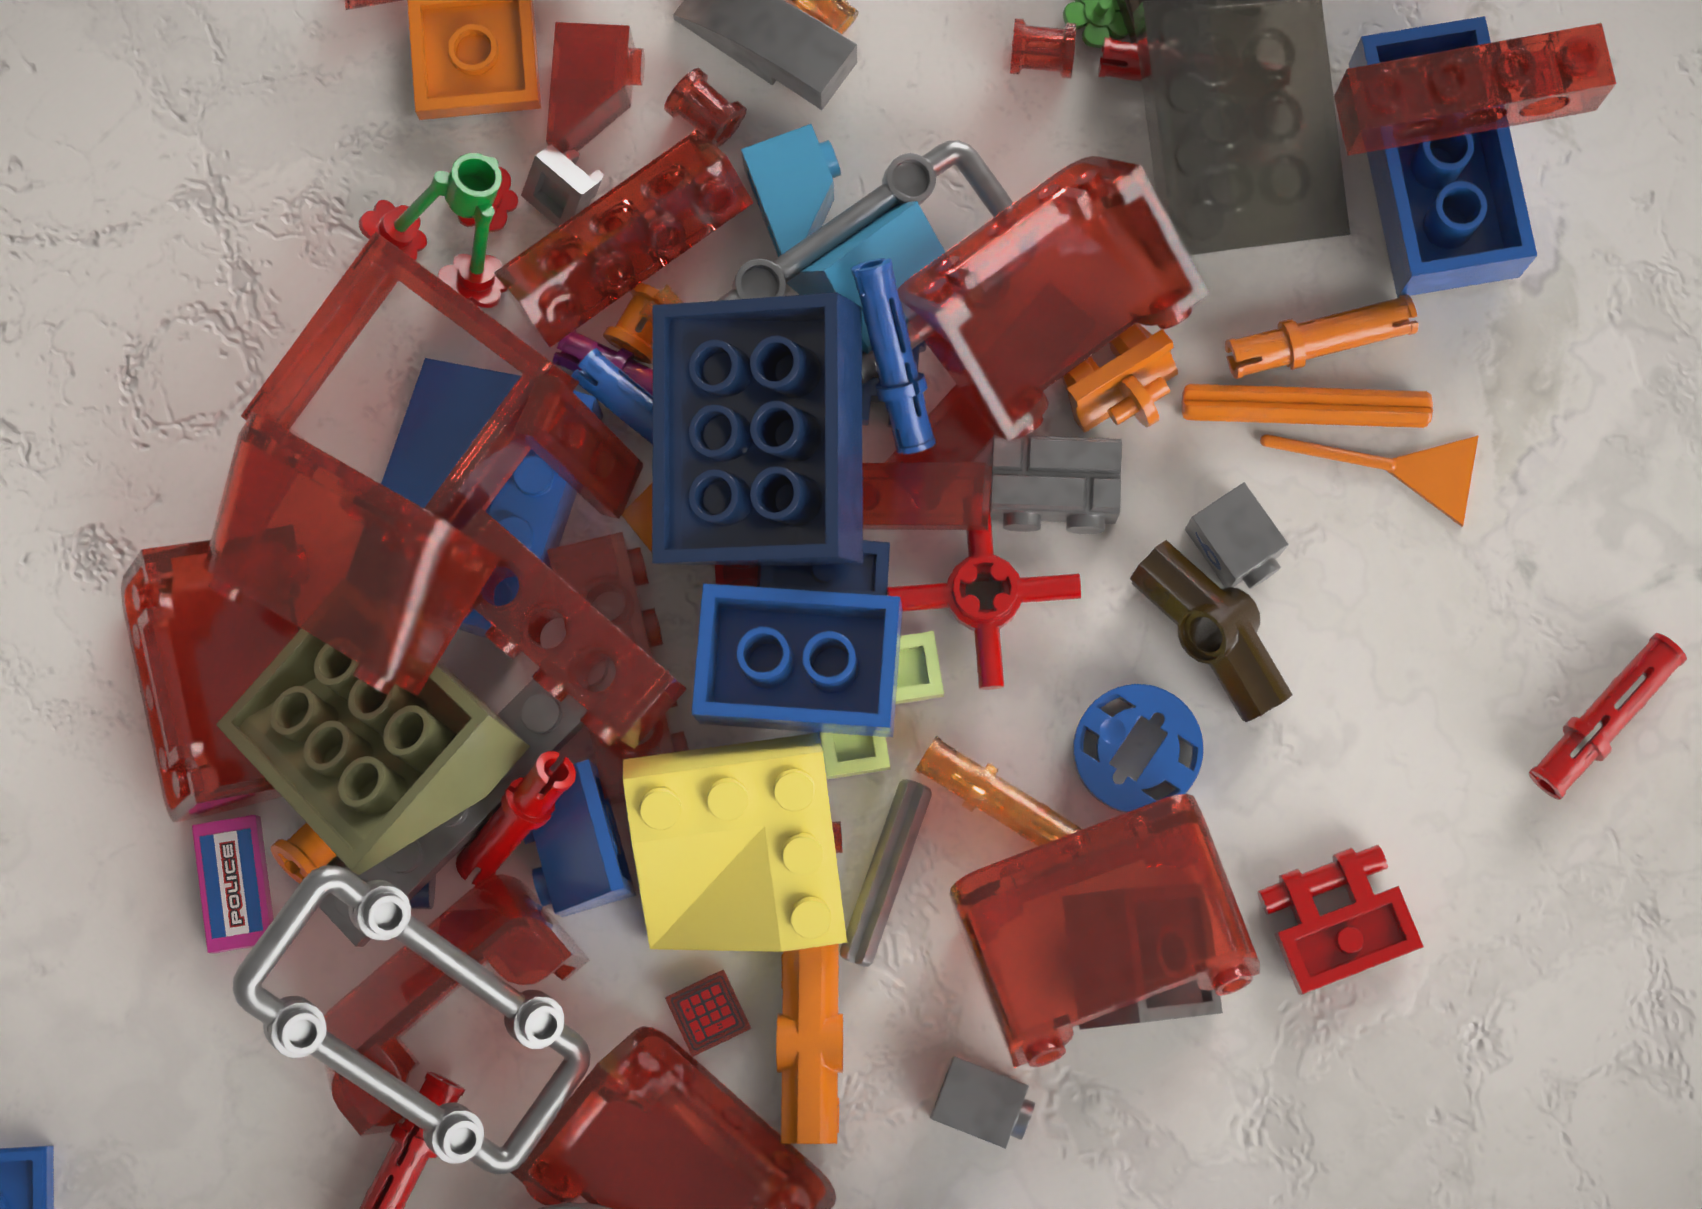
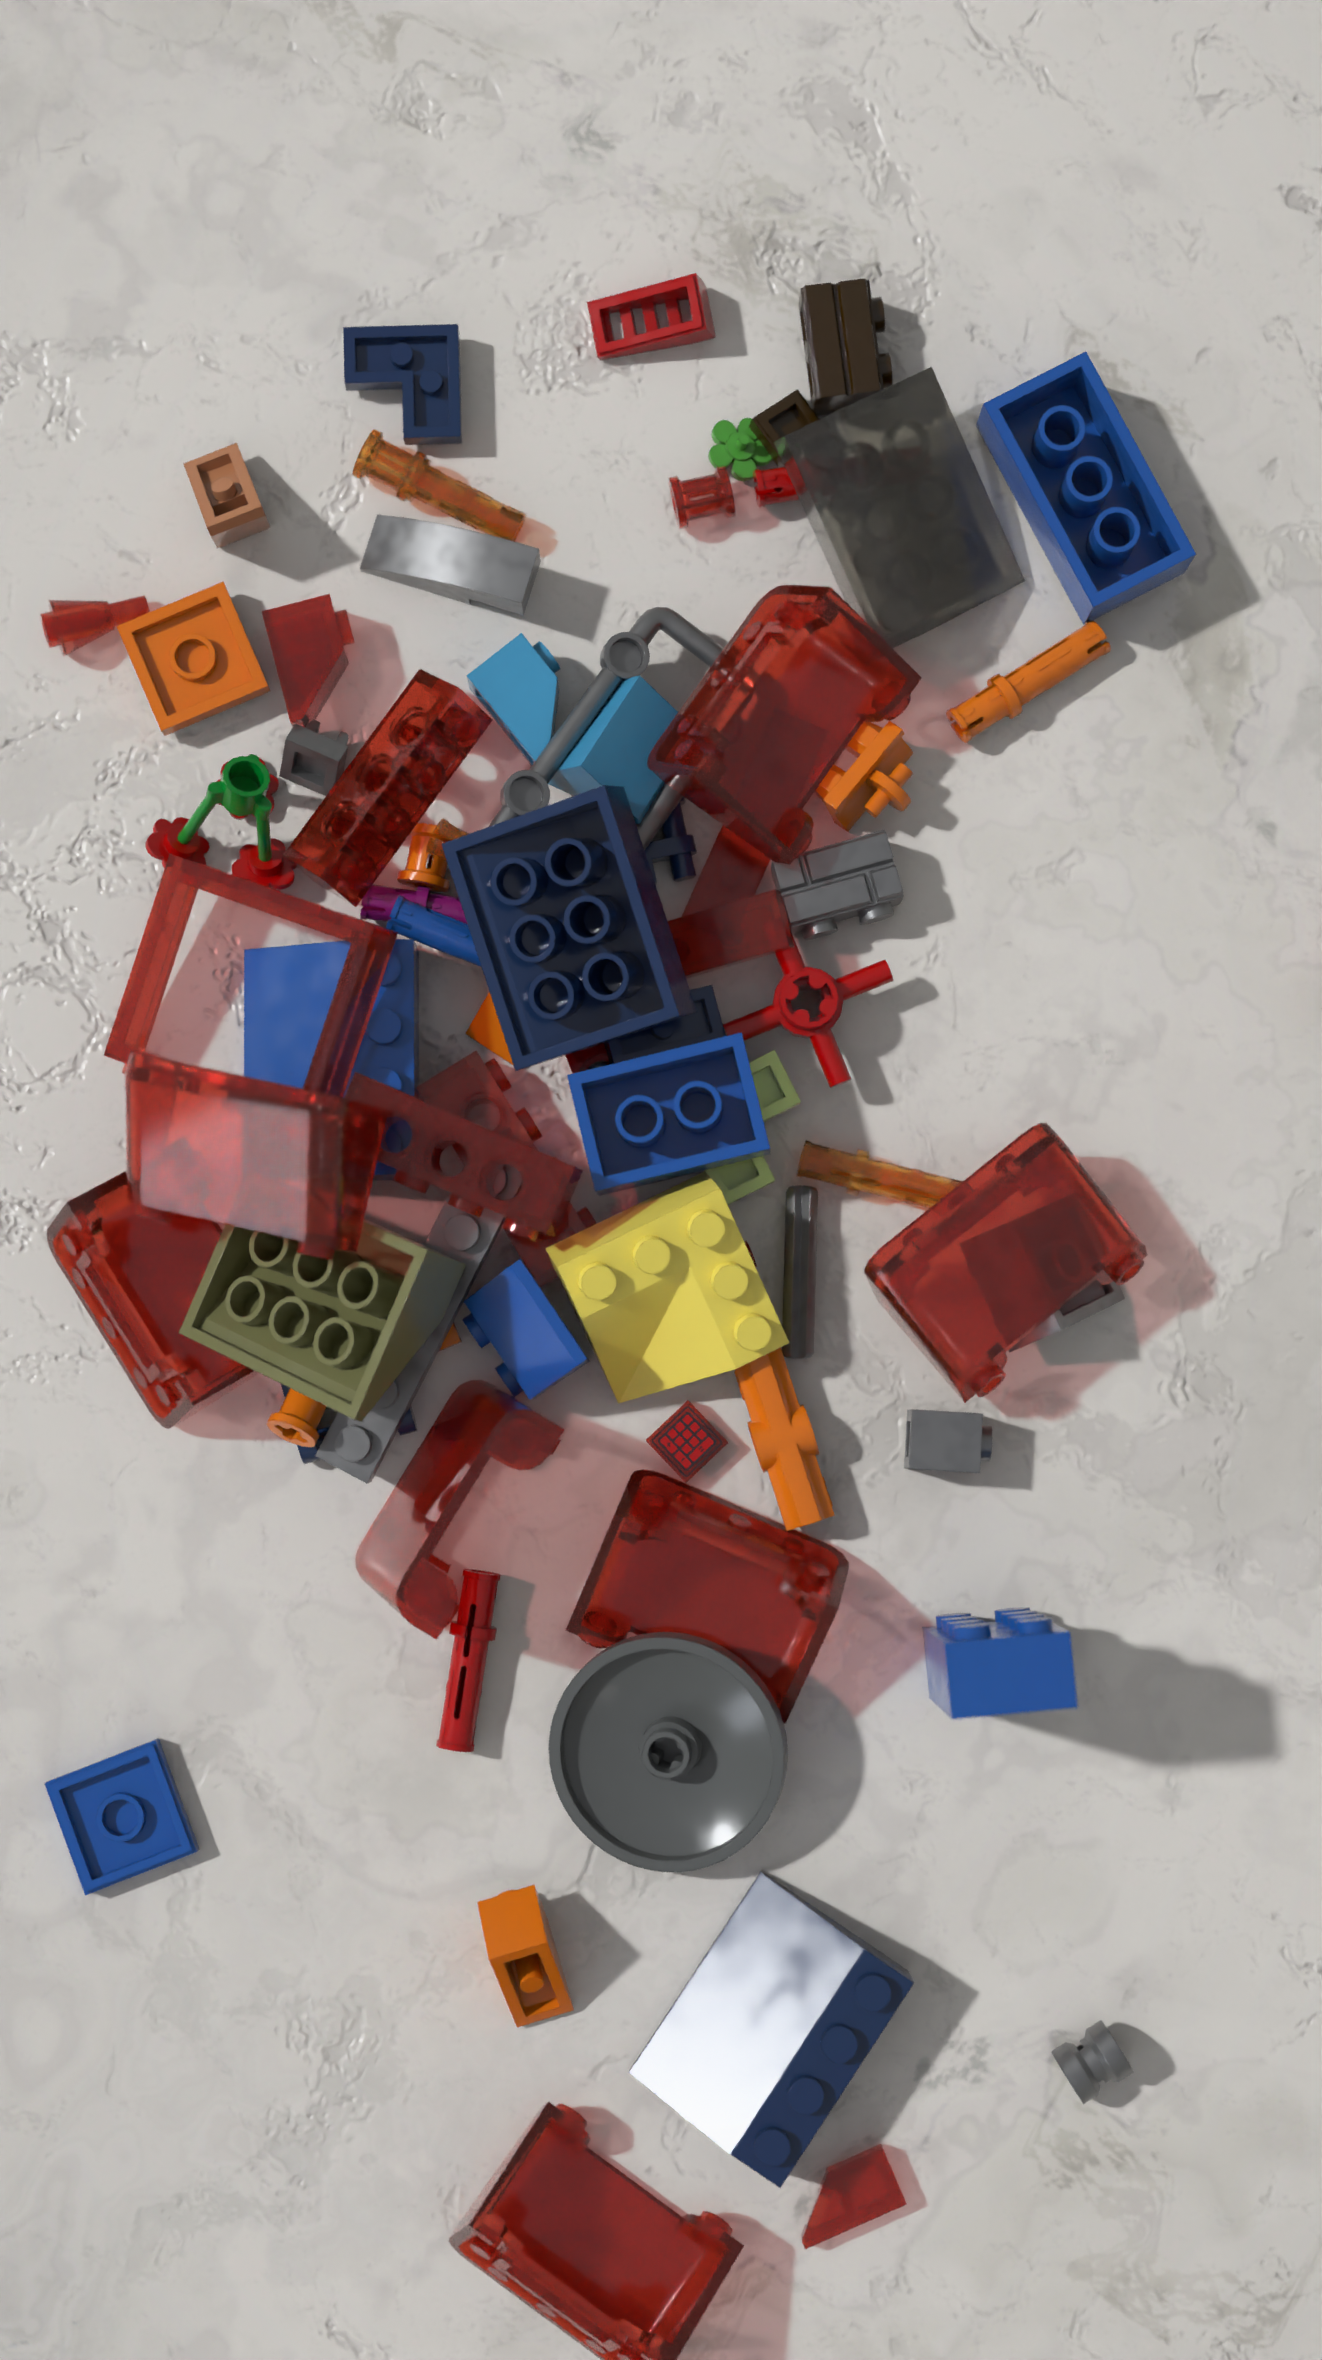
camera: 25 degrees left, 5 degrees up
(232, 882) = (237, 1464): tile -> none
(384, 913) = (363, 1566): flat silver bar -> none
(524, 807) = (476, 1318): red pin -> none
(578, 446) = (416, 988): clear red tile -> none
(705, 107) = (418, 646): clear red bush -> none
(900, 381) = (675, 839): blue pin -> none
(1111, 733) = (957, 1086): blue piece -> none
(1214, 628) = (1016, 970): dark brown piece -> none
(1238, 538) = (1012, 884): flat silver brick -> none
(1307, 405) = (1034, 746): orange axle -> none
(1348, 938) = (1210, 1202): red plate -> none
(1436, 474) = (1165, 771): orange piece -> none
(1474, 89) = (1097, 424): clear red brick -> none

